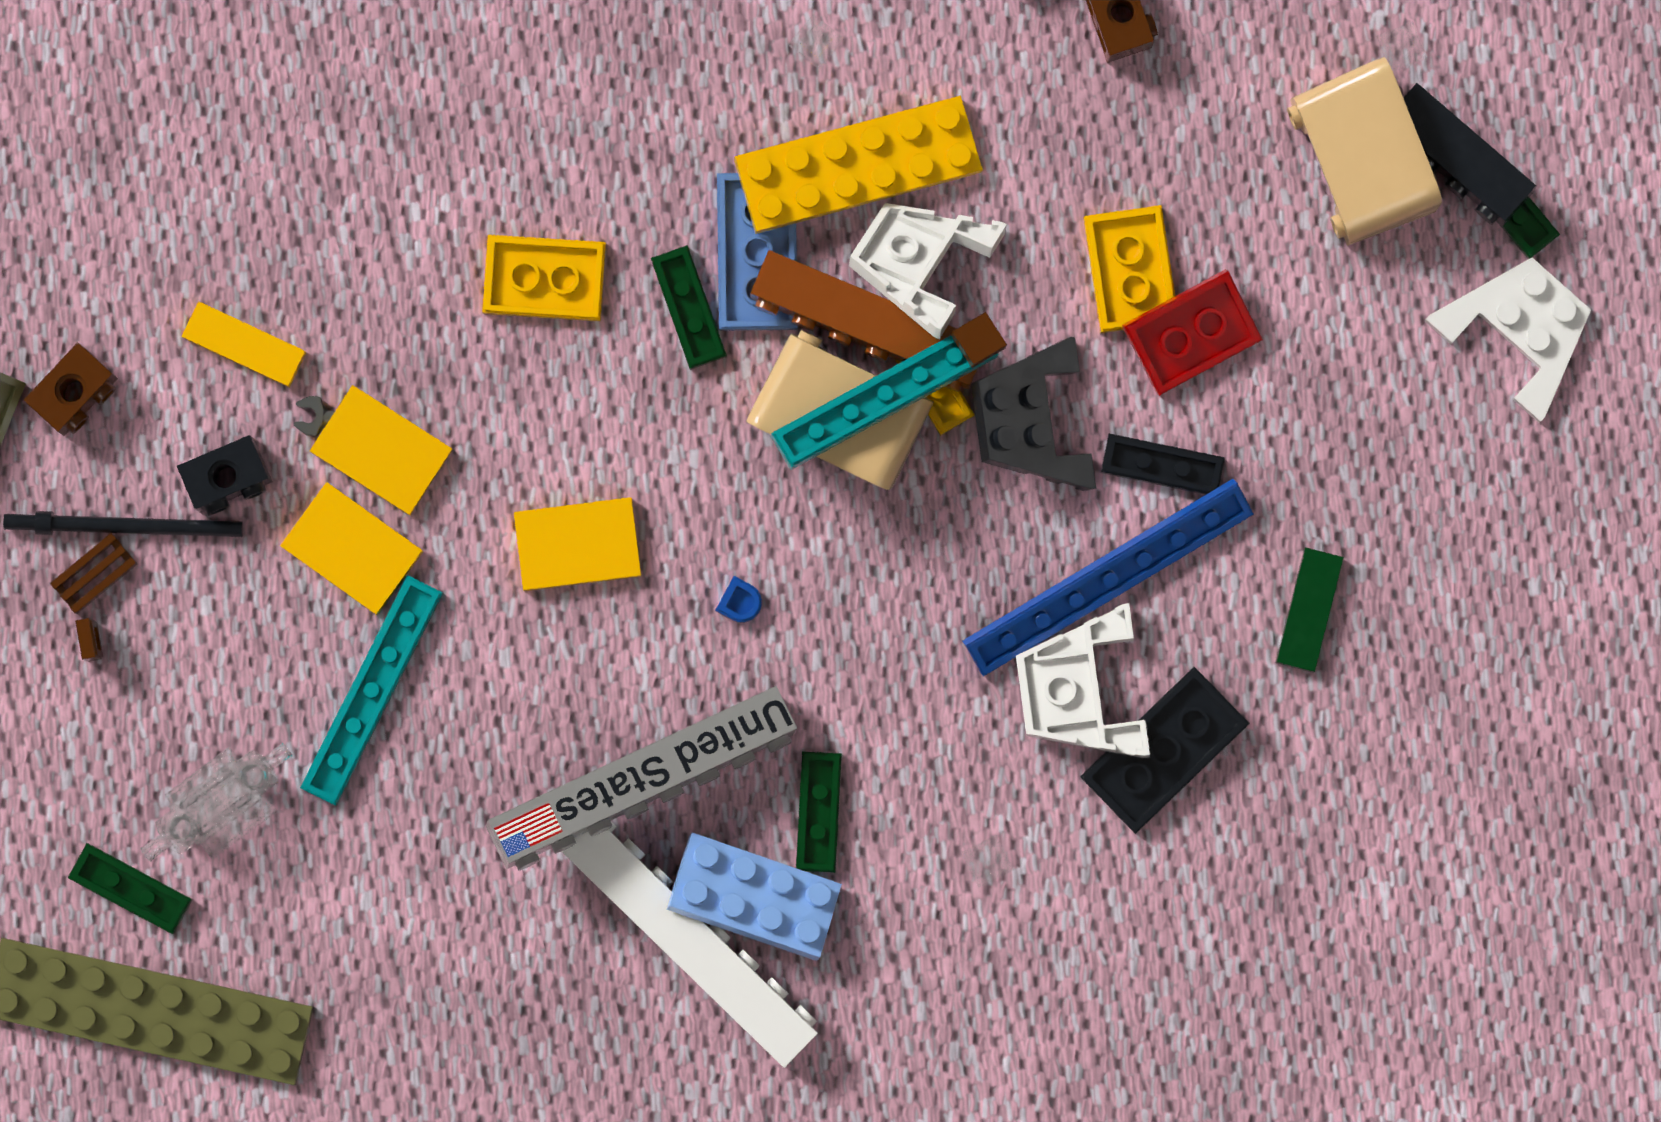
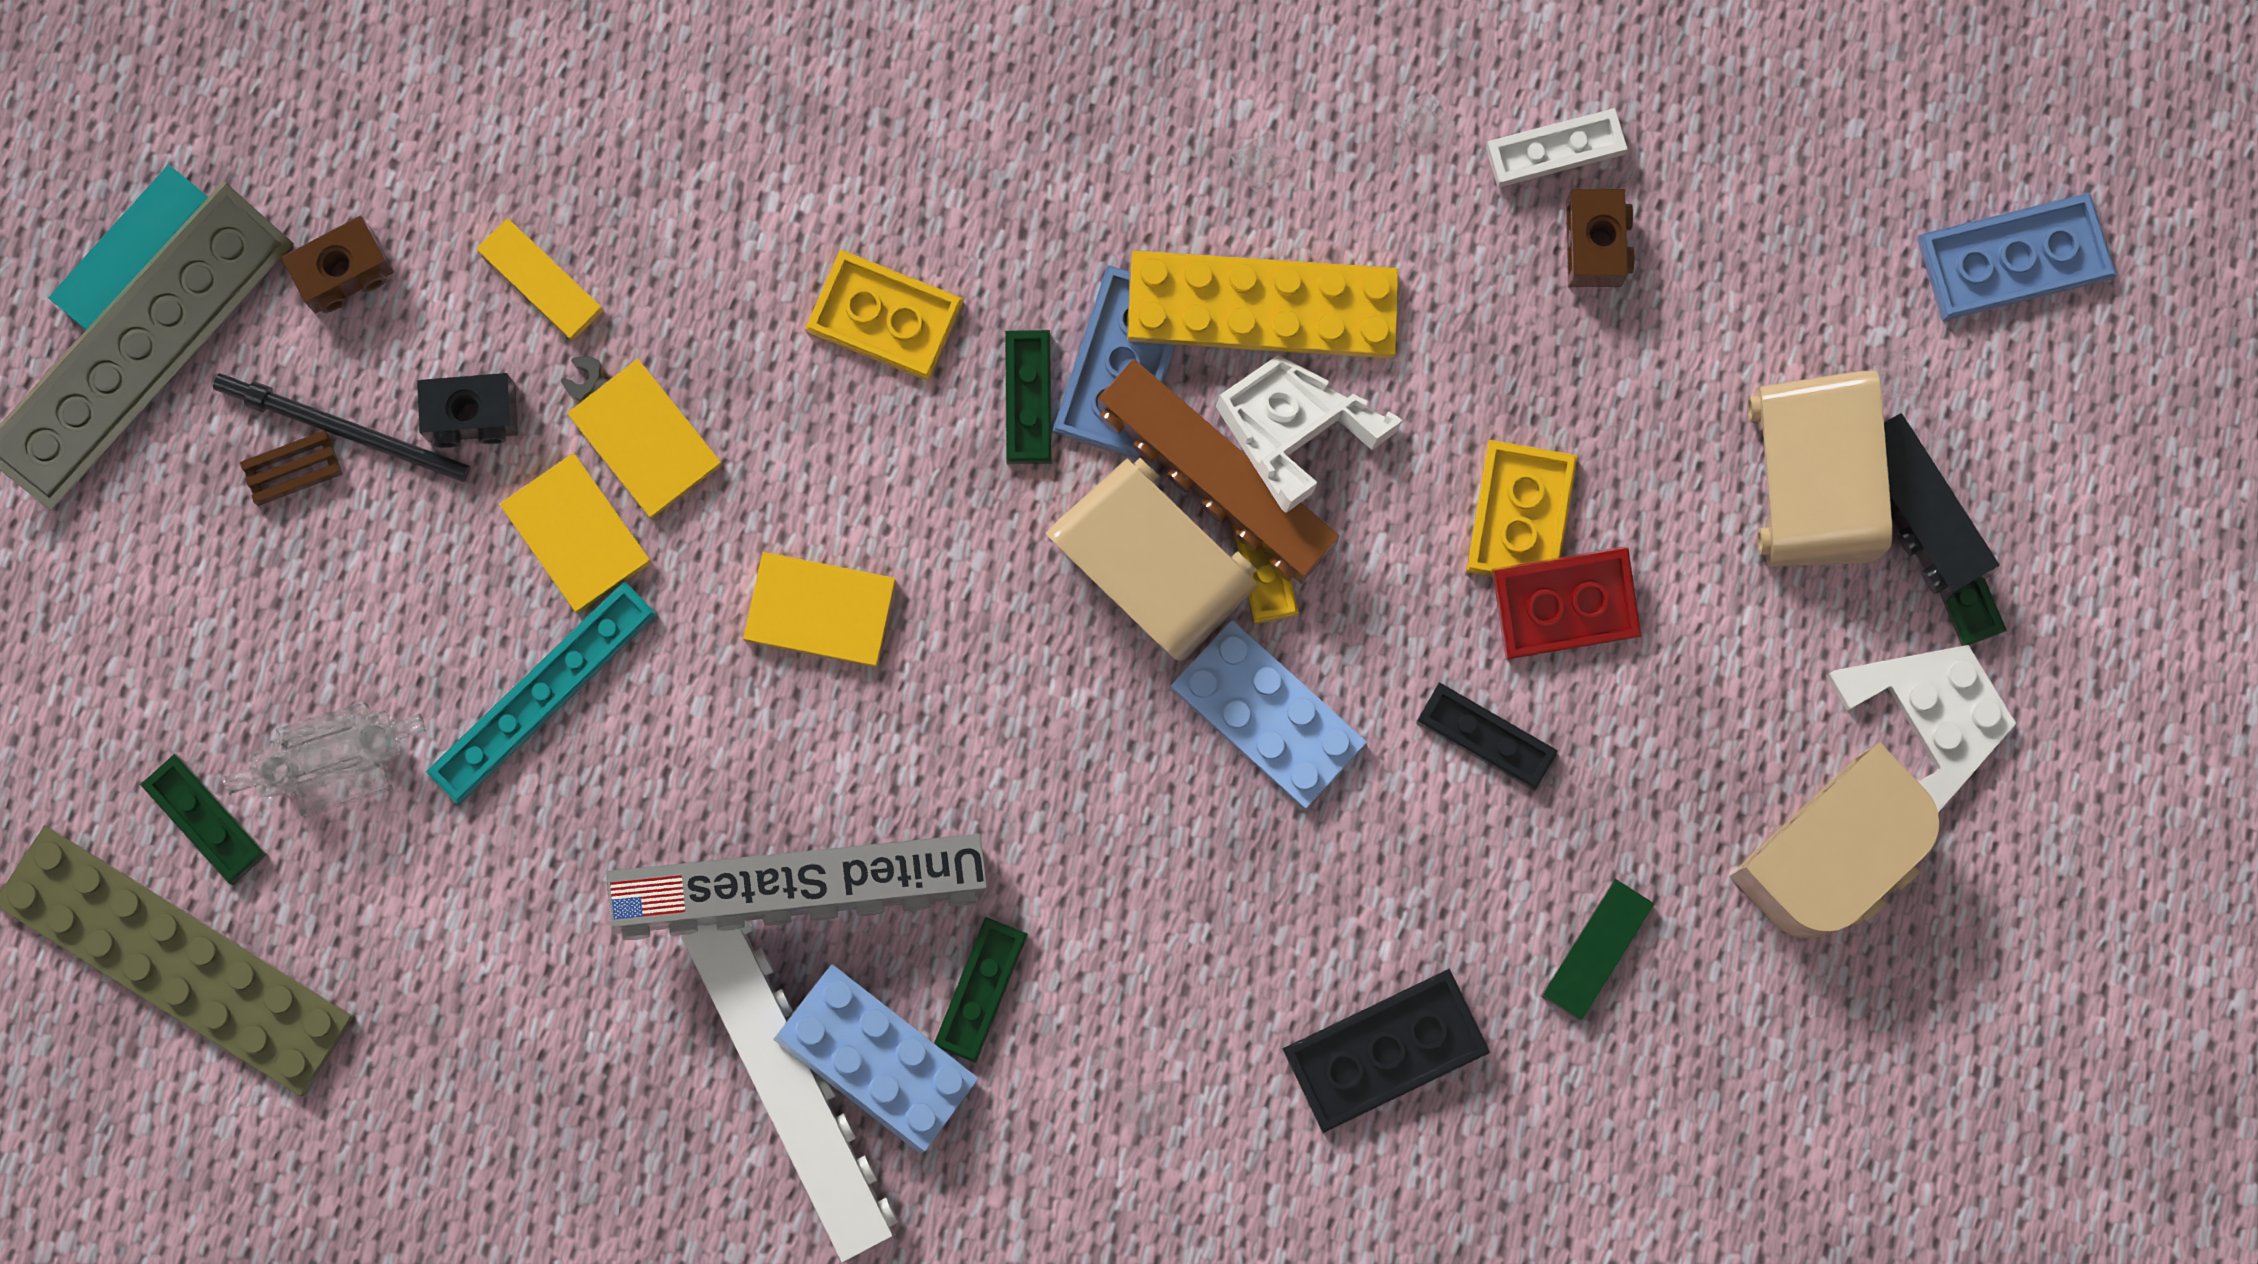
camera: 20 degrees right, 5 degrees down
(89, 639) = (258, 535): reddish brown tile -> none
(740, 601) = (974, 730): blue tile -> none
(872, 402) = (1205, 553): teal tile -> none
(977, 507) = (1268, 714): none -> light blue plate
(978, 339) = (1329, 527): reddish brown tile -> none
(1016, 418) = (1342, 633): black wing -> none
(1063, 690) = (1295, 946): white wing -> none
(1108, 577) = (1386, 838): blue tile -> none
(1481, 462) = (1843, 849): none -> tan brick

